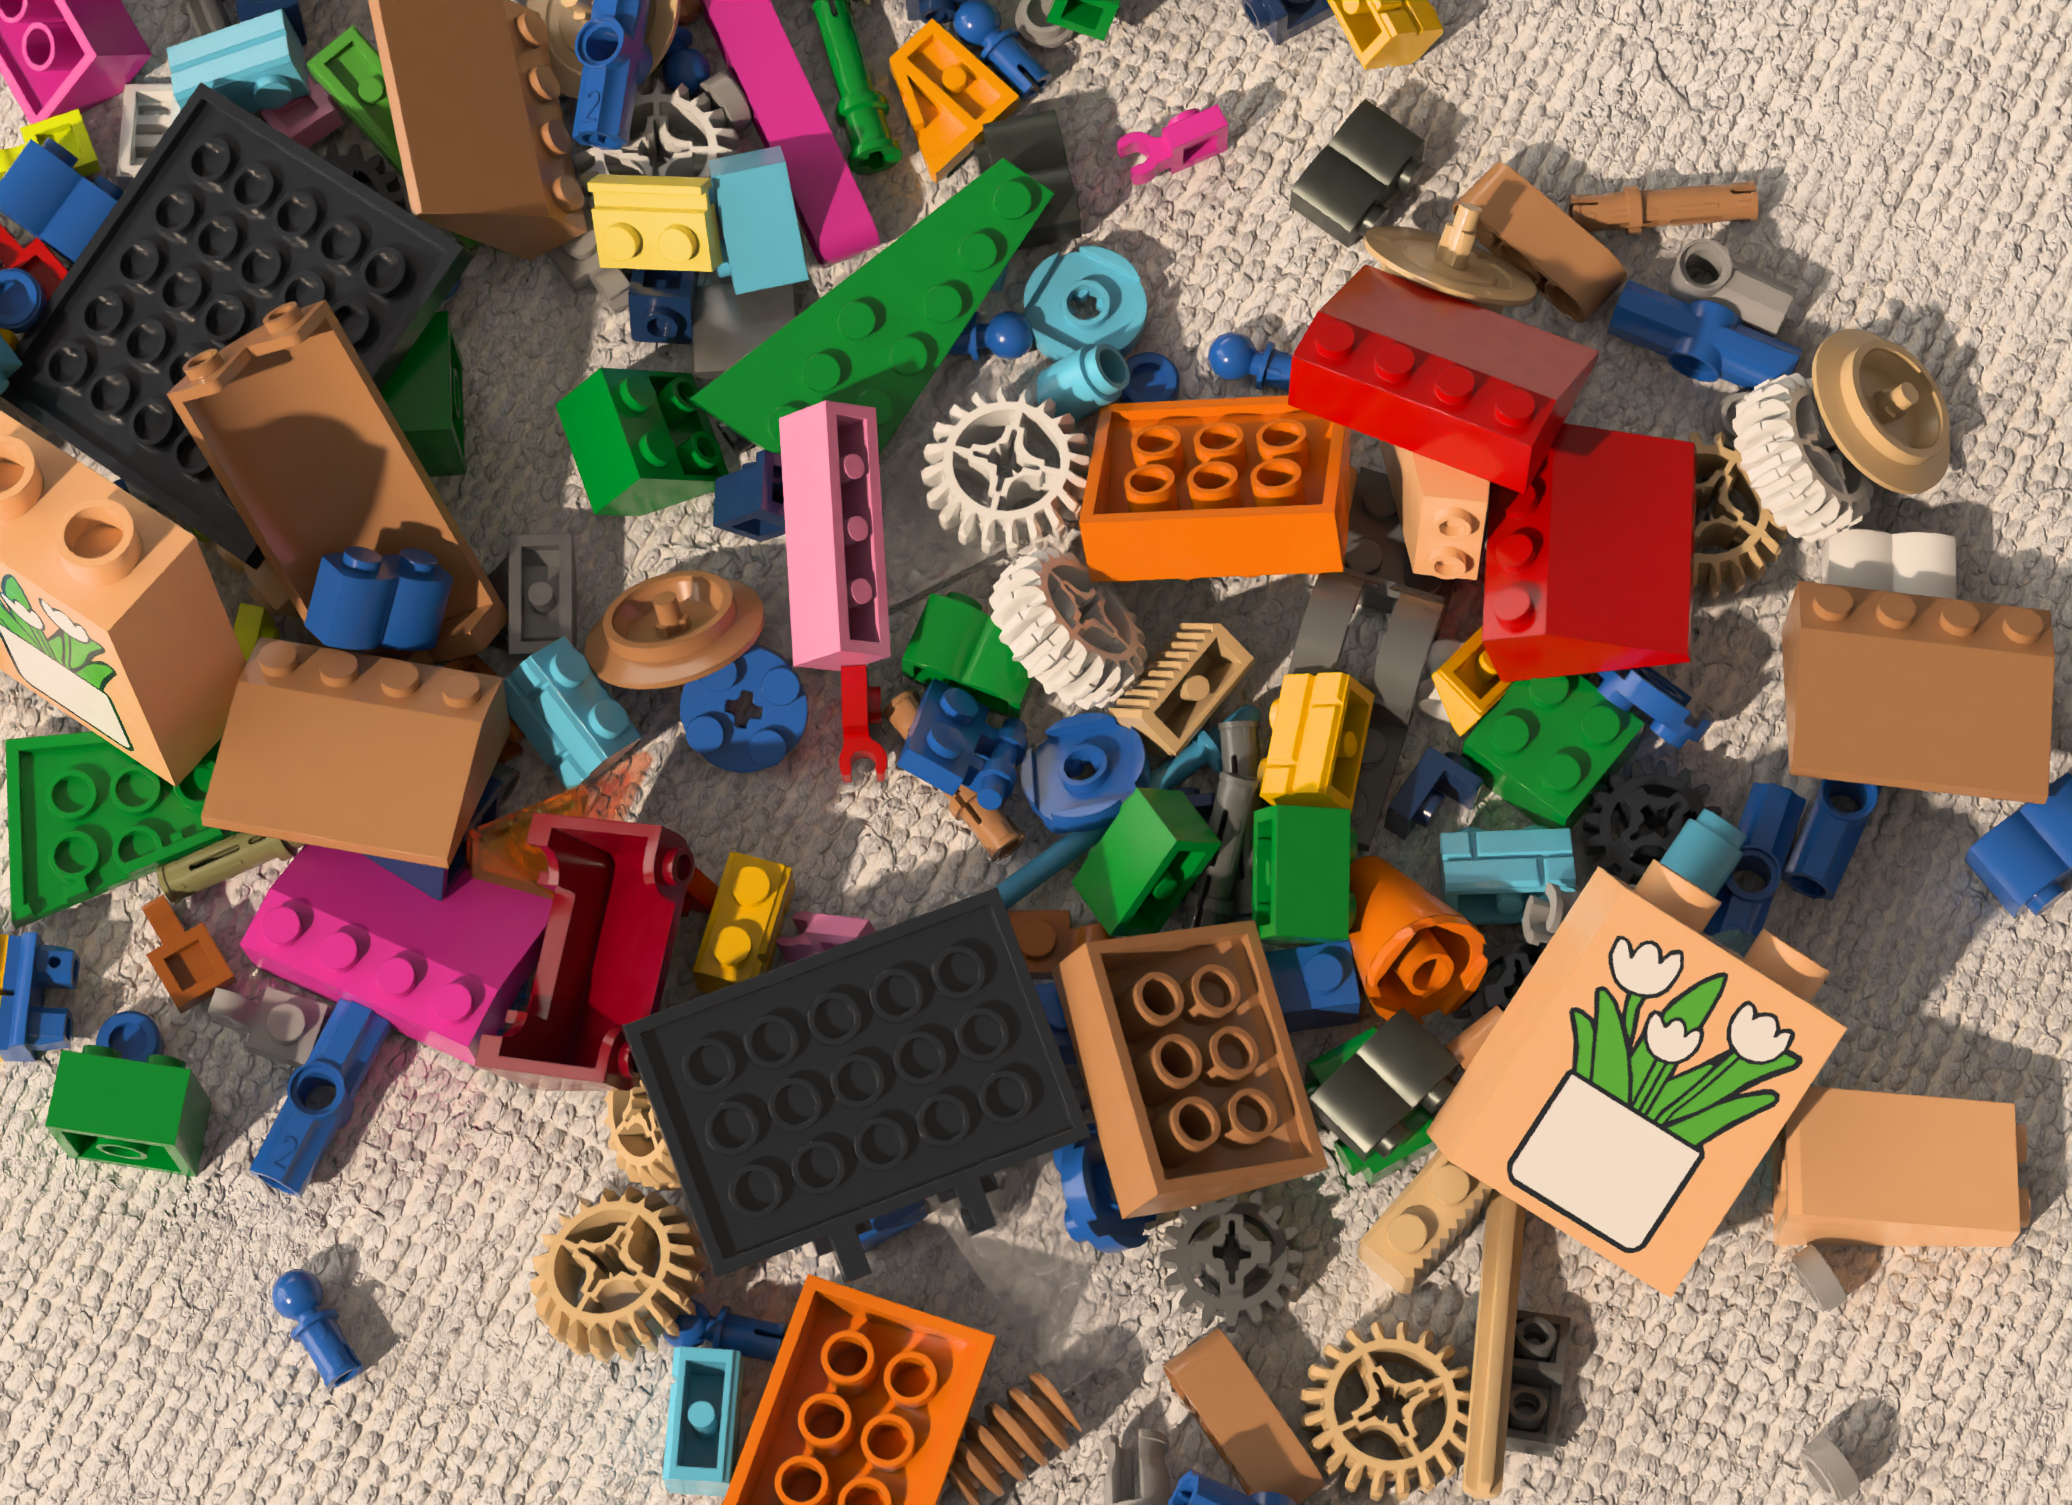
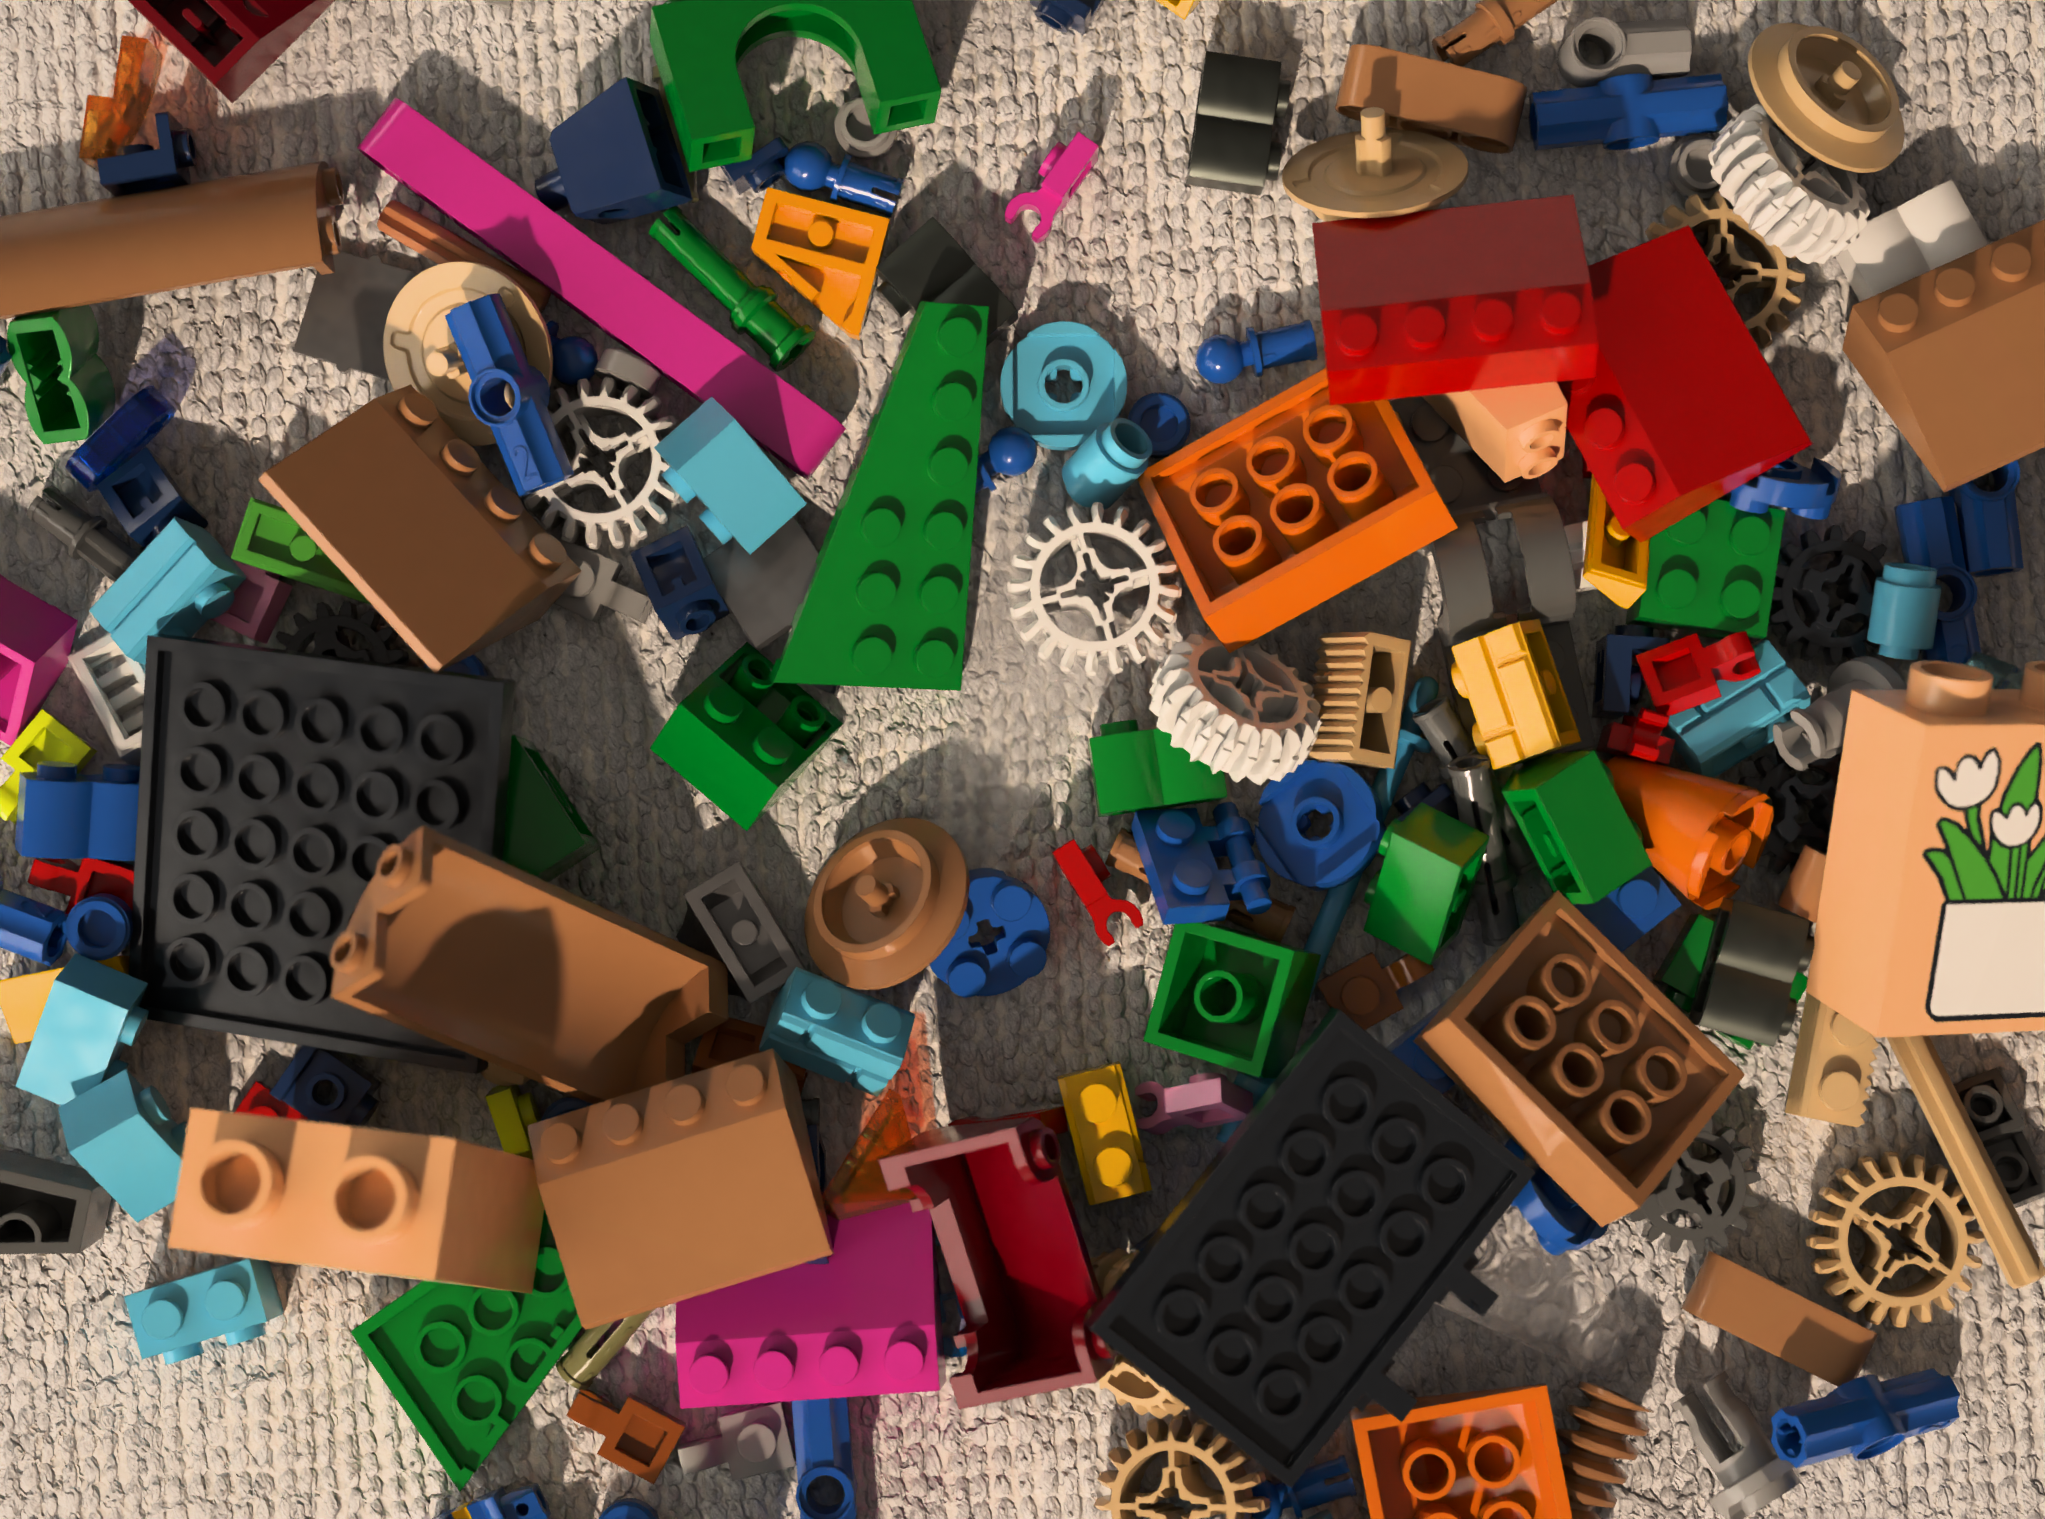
camera: 30 degrees left, 15 degrees up
(379, 600) = (616, 1037): blue brick -> none
(655, 223) = (643, 535): light yellow plate -> none
(752, 499) = (889, 730): dark blue brick -> none
(834, 536) = (984, 744): bright pink brick -> none
(917, 857) = (1232, 998): none -> green brick
(1409, 849) = (1638, 737): none -> red plate
(1481, 807) = (1686, 673): none -> red plate

